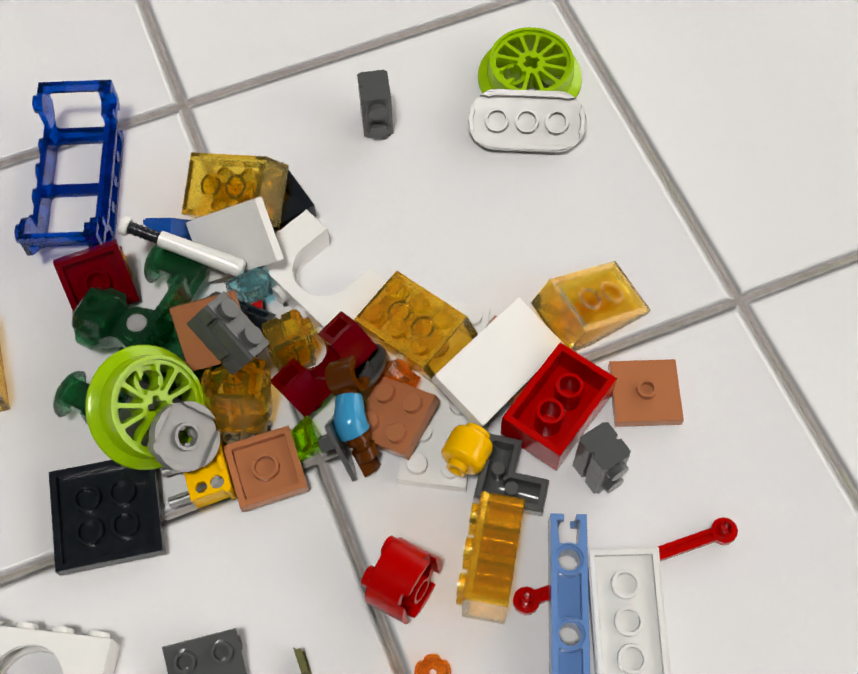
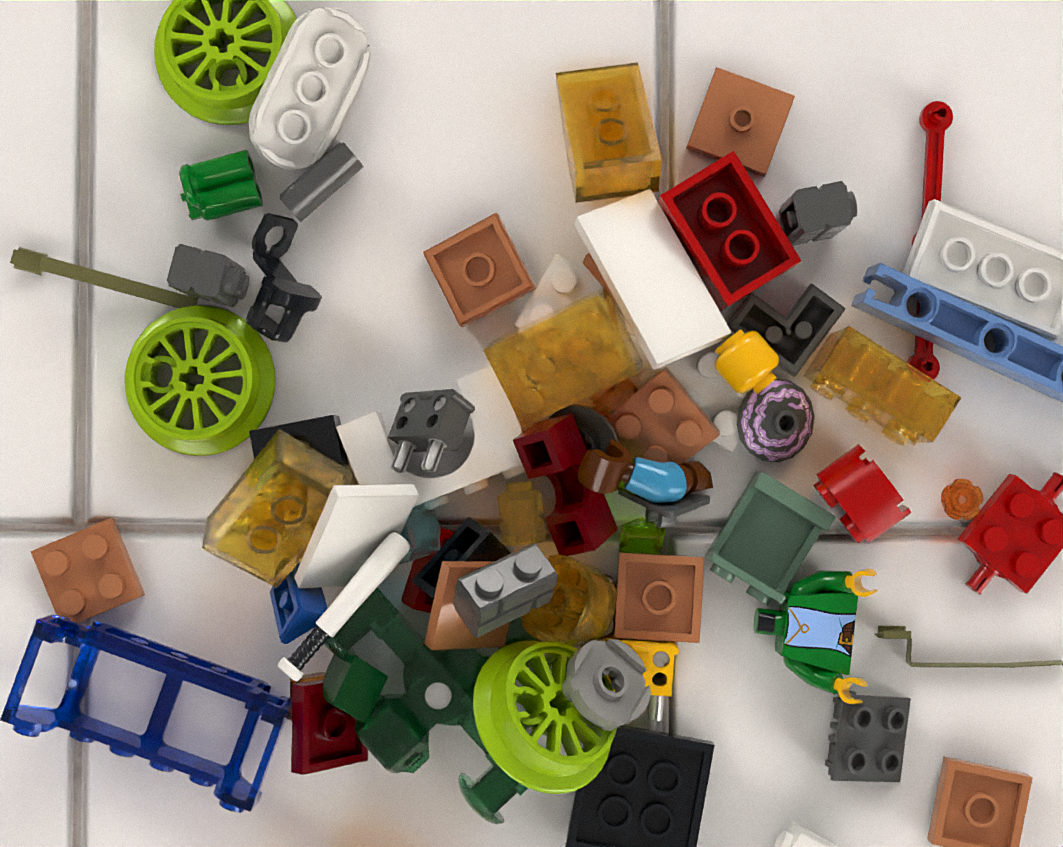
camera: 60 degrees left, 25 degrees up
(125, 276) = (353, 686): none -> dark green brick
(154, 117) = (88, 572): none -> nougat plate
(282, 593) = (818, 628): none -> torso
(306, 117) = (250, 406): none -> lime piece
(328, 260) = (428, 424): none -> dark grey piece
(339, 530) = (767, 537): none -> sand green panel
(344, 24) = (37, 262): none -> olive piece
(388, 148) = (279, 285): none -> black piece
(434, 520) = (760, 419): none -> dish
(438, 96) = (220, 186): none -> green piece
(455, 263) = (479, 270): none -> nougat plate
(469, 148) = (321, 181): none -> dark grey brick

